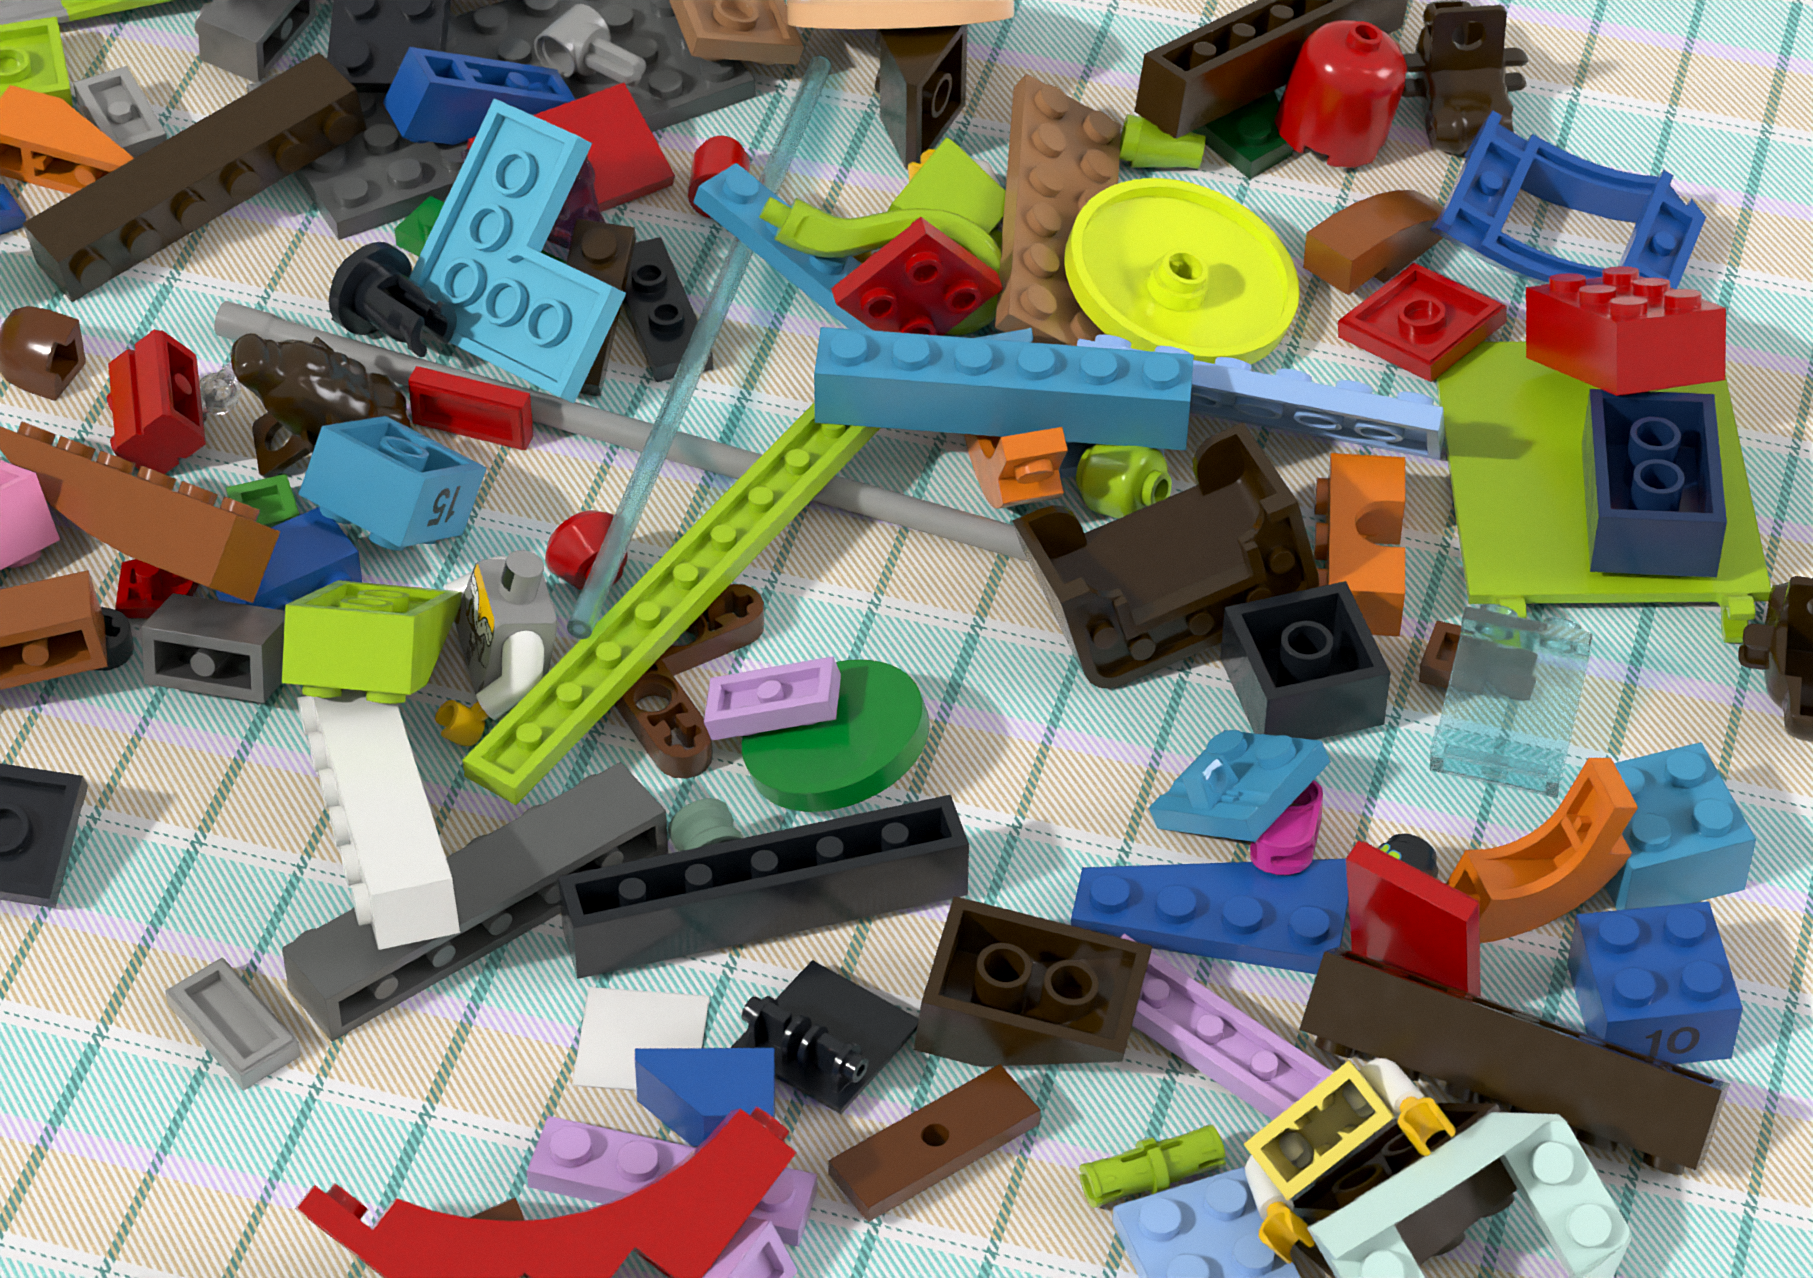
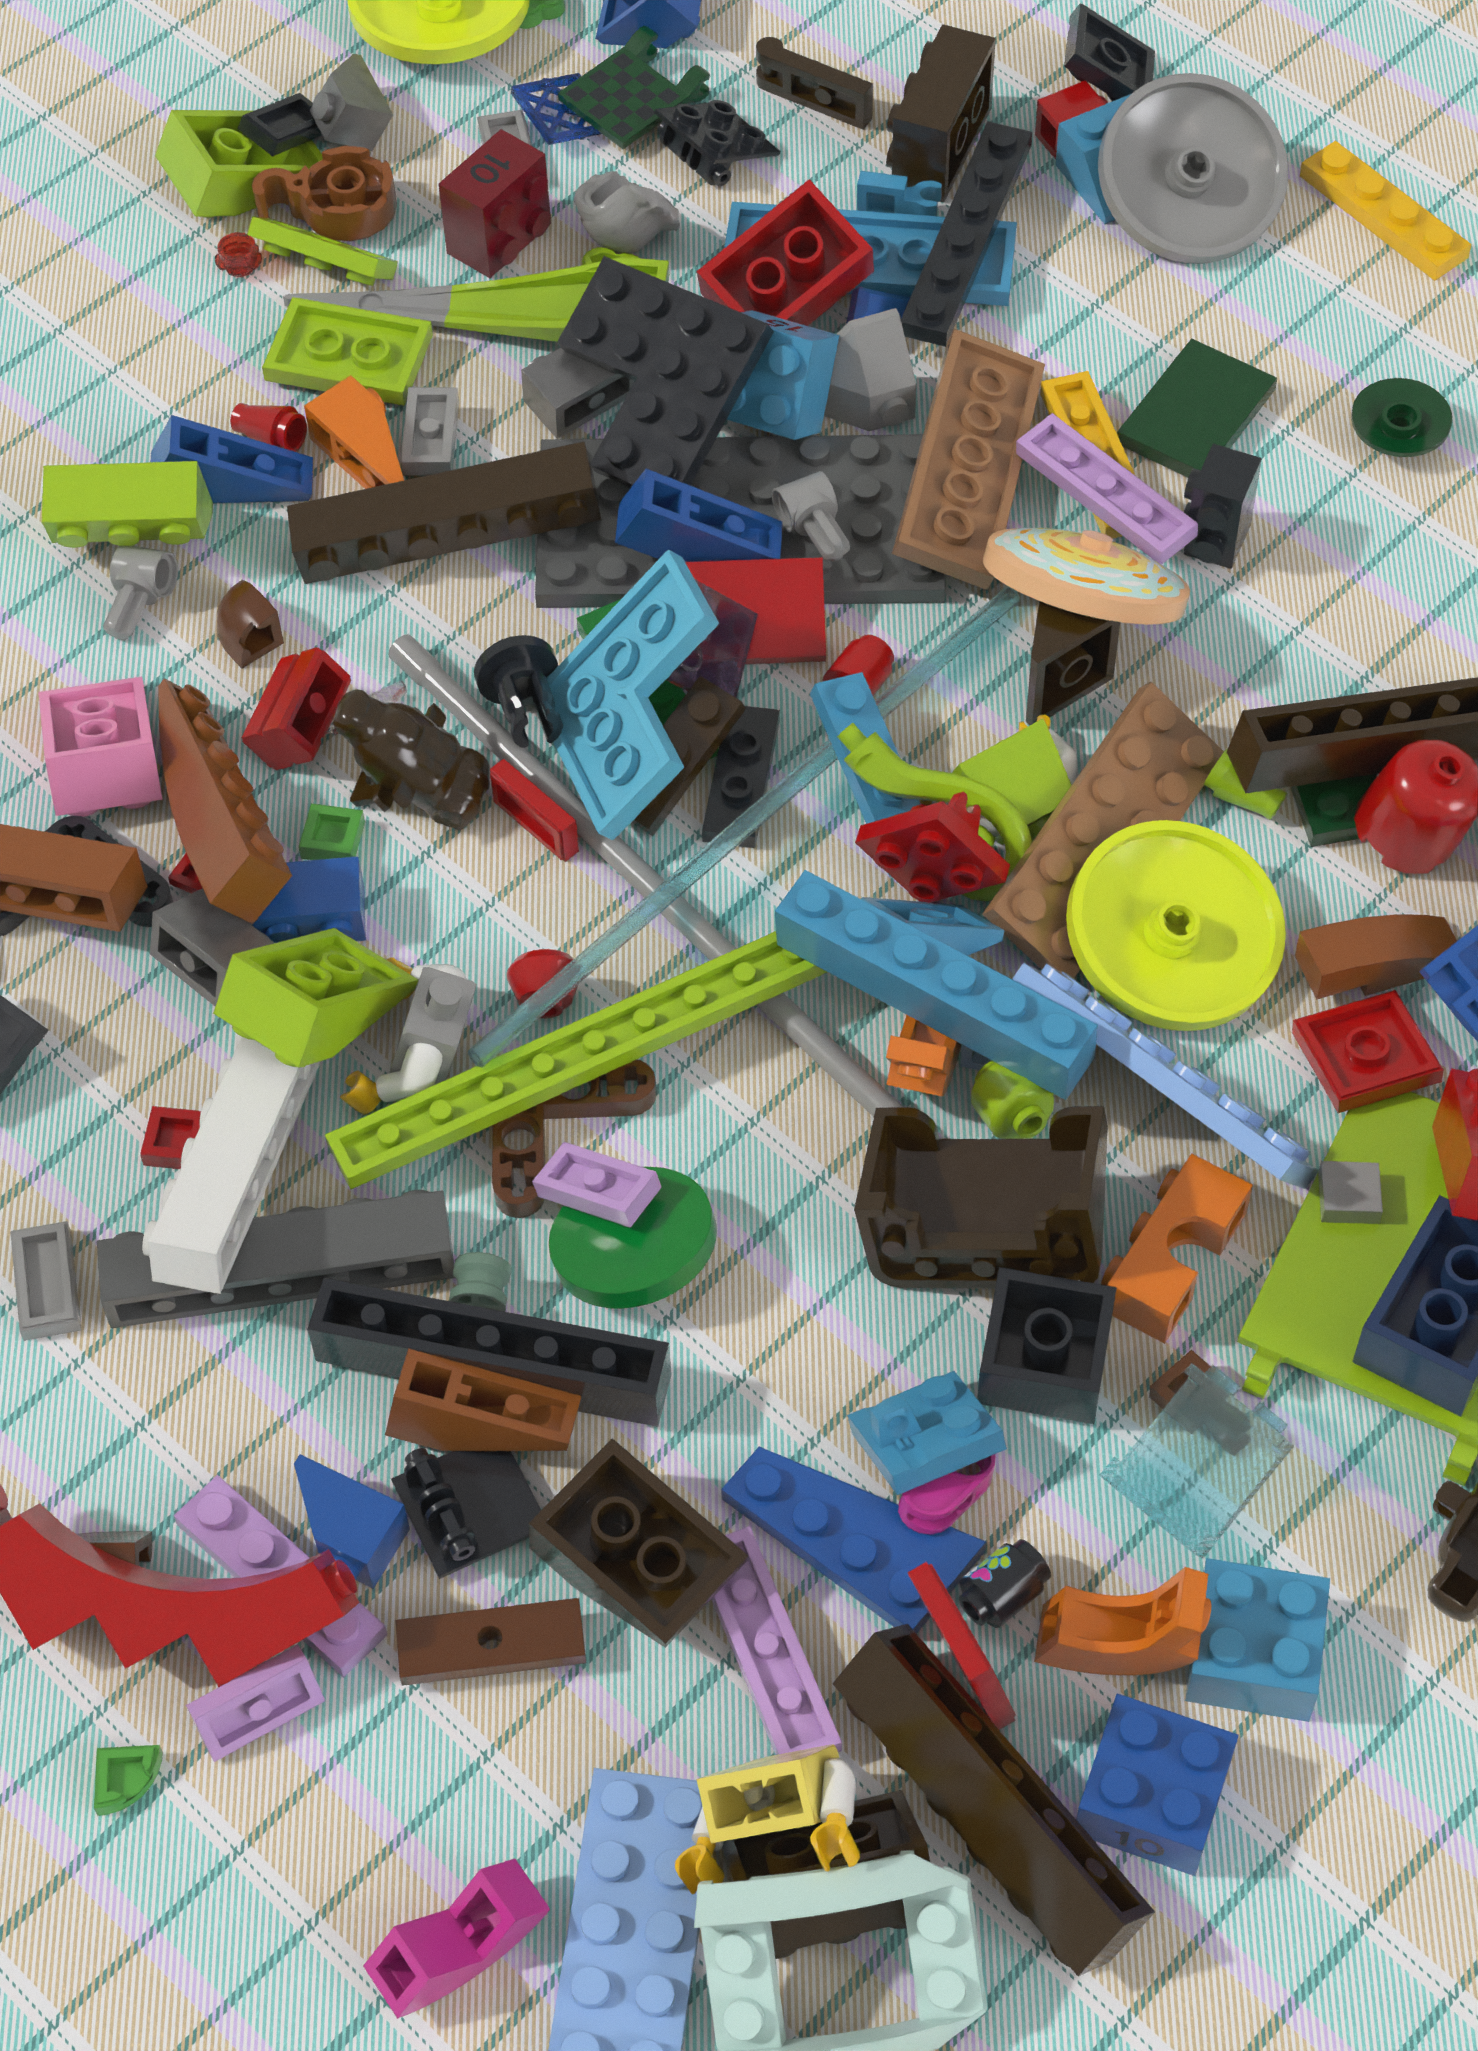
camera: 30 degrees right, 10 degrees up
(285, 841) = (167, 1135): none -> red tile
(391, 482) = (419, 858): dark azure brick -> none
(631, 1019) = (335, 1429): white sticker -> none
(782, 941) = (477, 1409): none -> dark orange slope
(1152, 1165) = (646, 1746): lime pin -> none
(1490, 438) = (1350, 1192): none -> light grey tile

